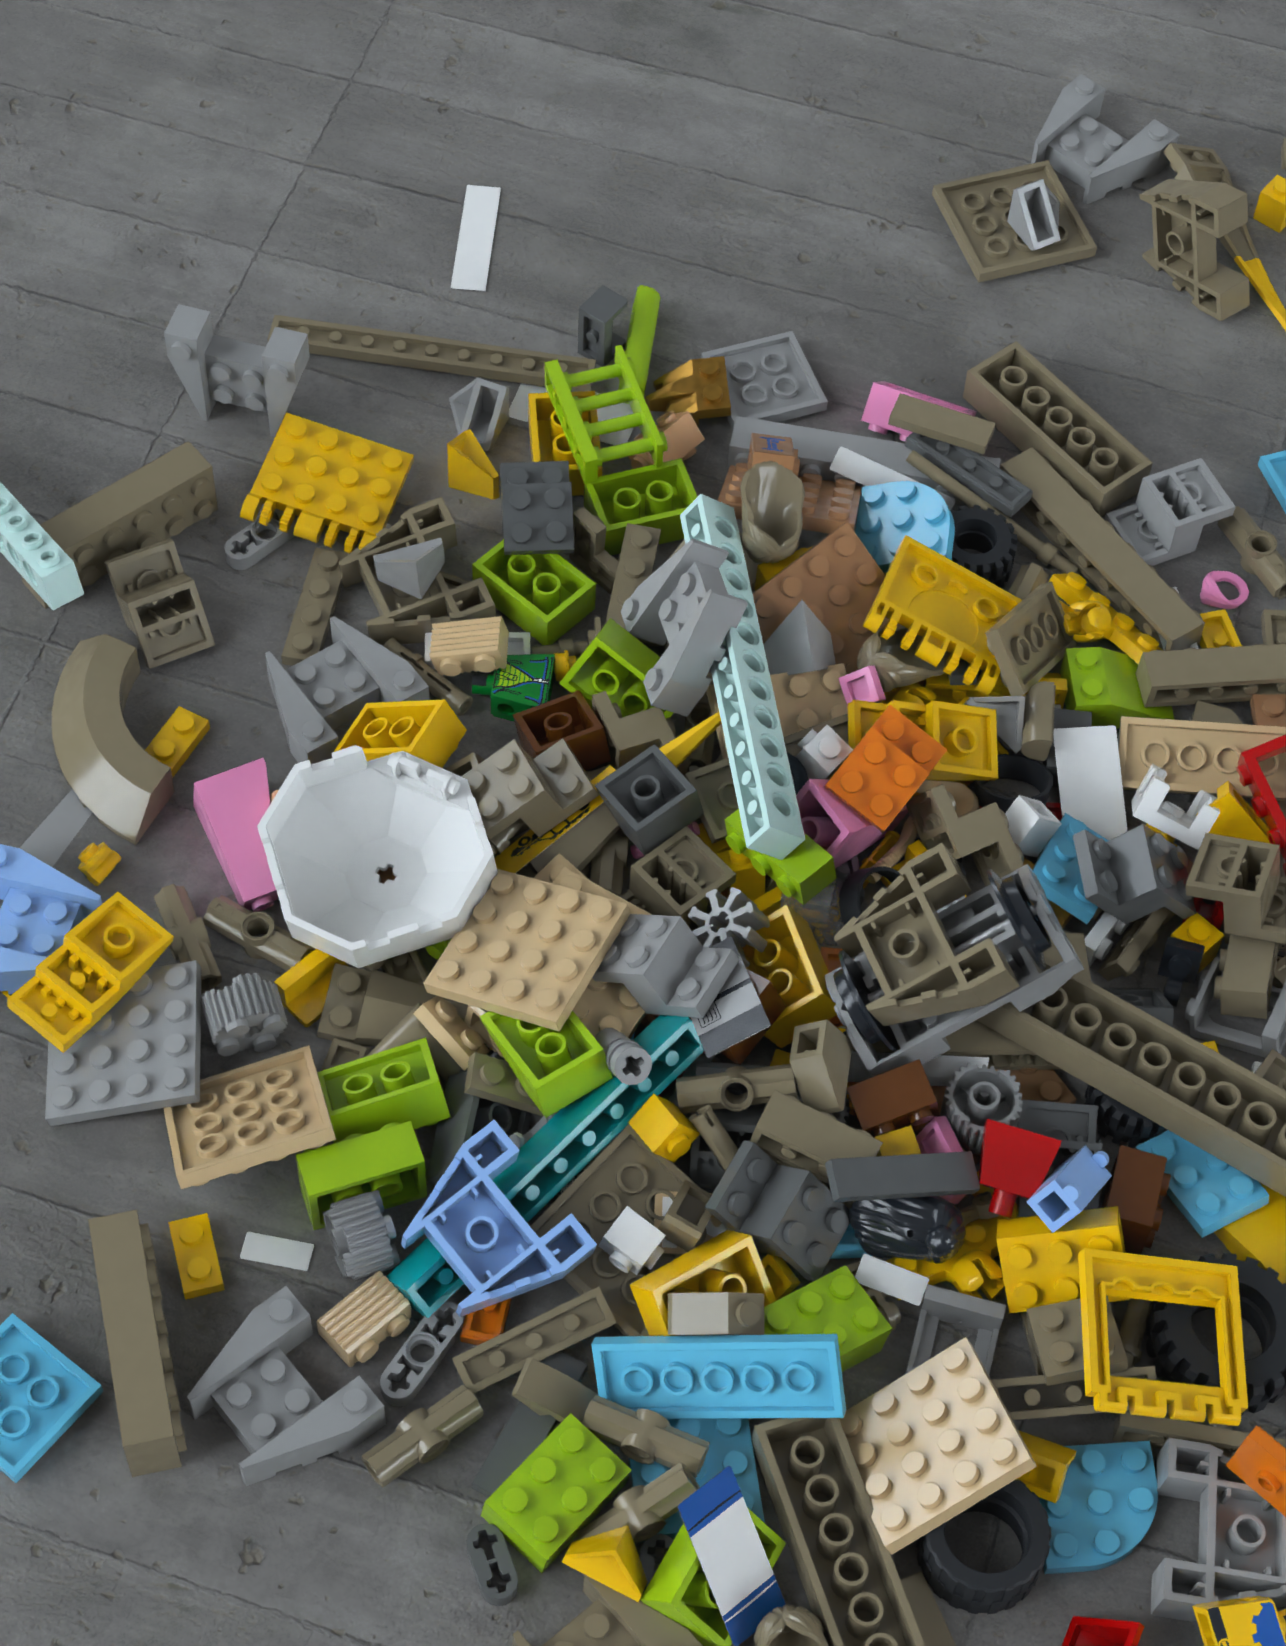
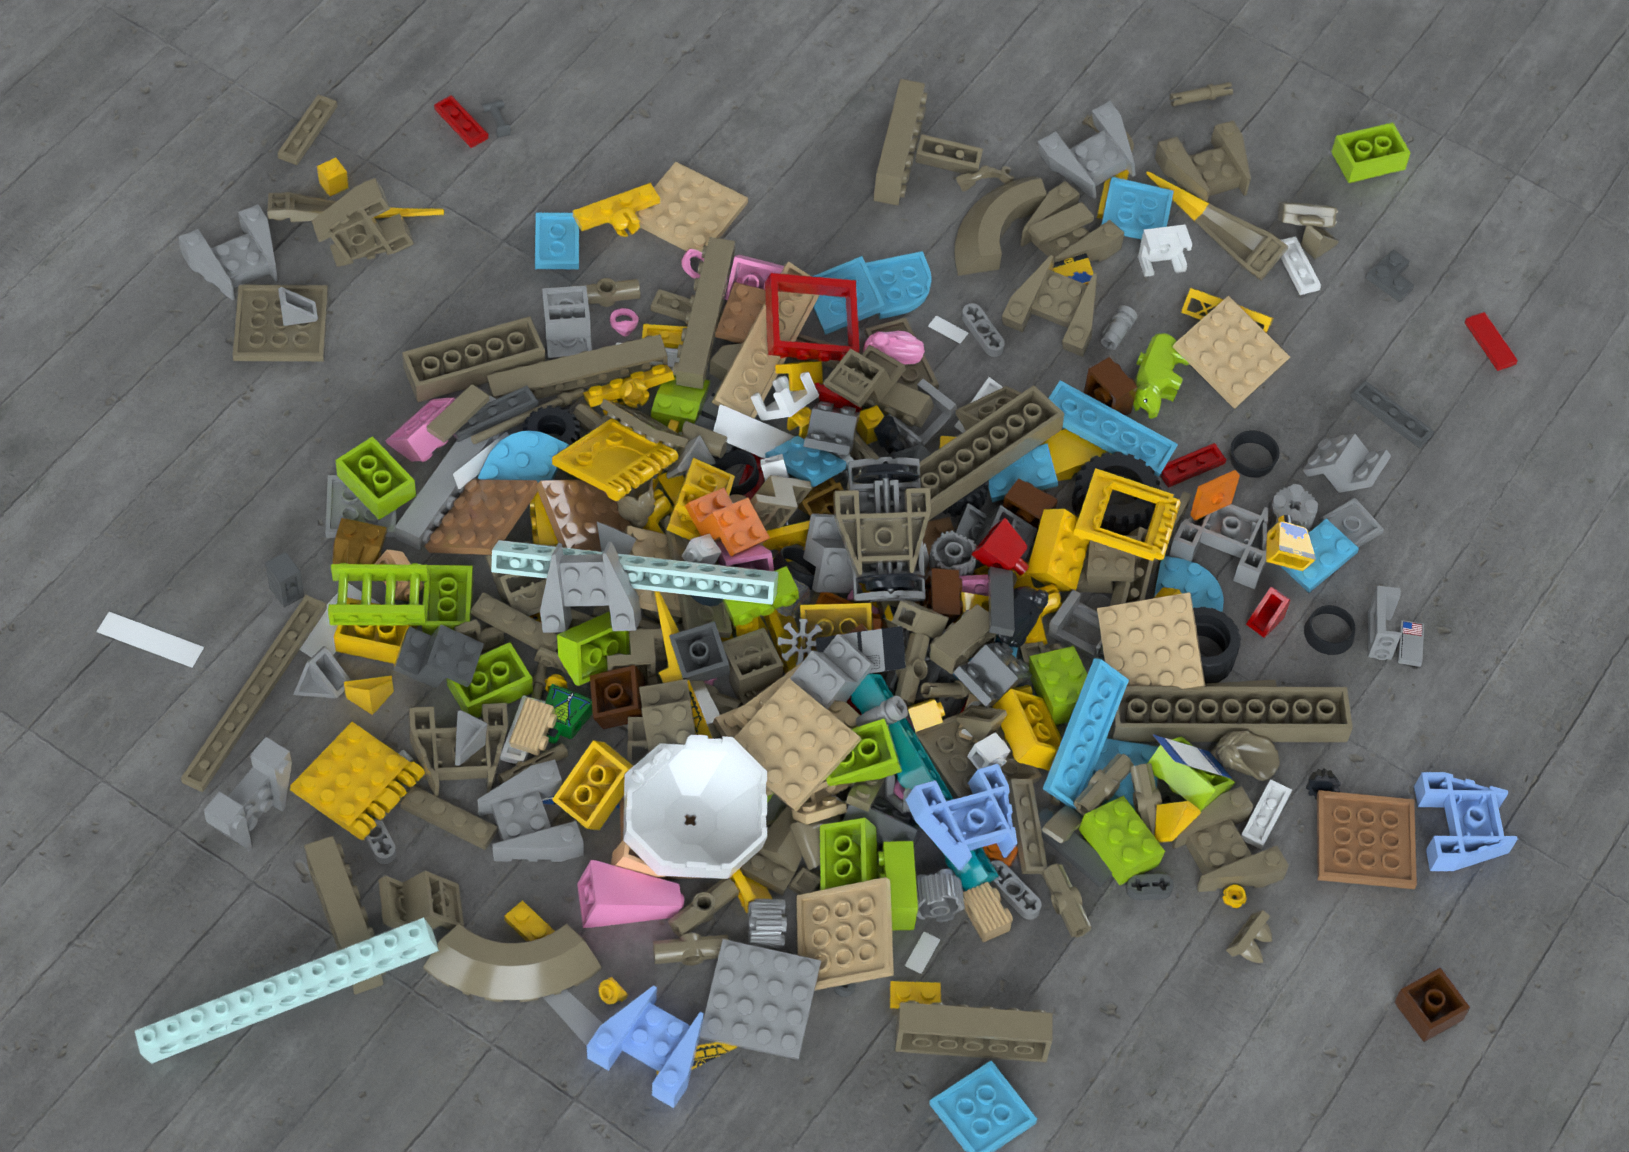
camera: 75 degrees left, 0 degrees up
(90, 971) = (714, 999): yellow slope -> none
(270, 1400) = (1027, 972): light grey wedge -> none
(642, 332) = (311, 571): lime brick -> none
(715, 1313) = (1054, 718): slope -> none
(771, 512) = (518, 519): dark tan hair -> none
(774, 449) = (452, 514): medium nougat brick -> none
(797, 368) = (375, 478): none -> lime brick
(862, 686) = (654, 520): bright pink plate -> none
(891, 1279) = (1040, 639): white sticker -> none
(1070, 1188) = (1032, 525): light blue brick -> none

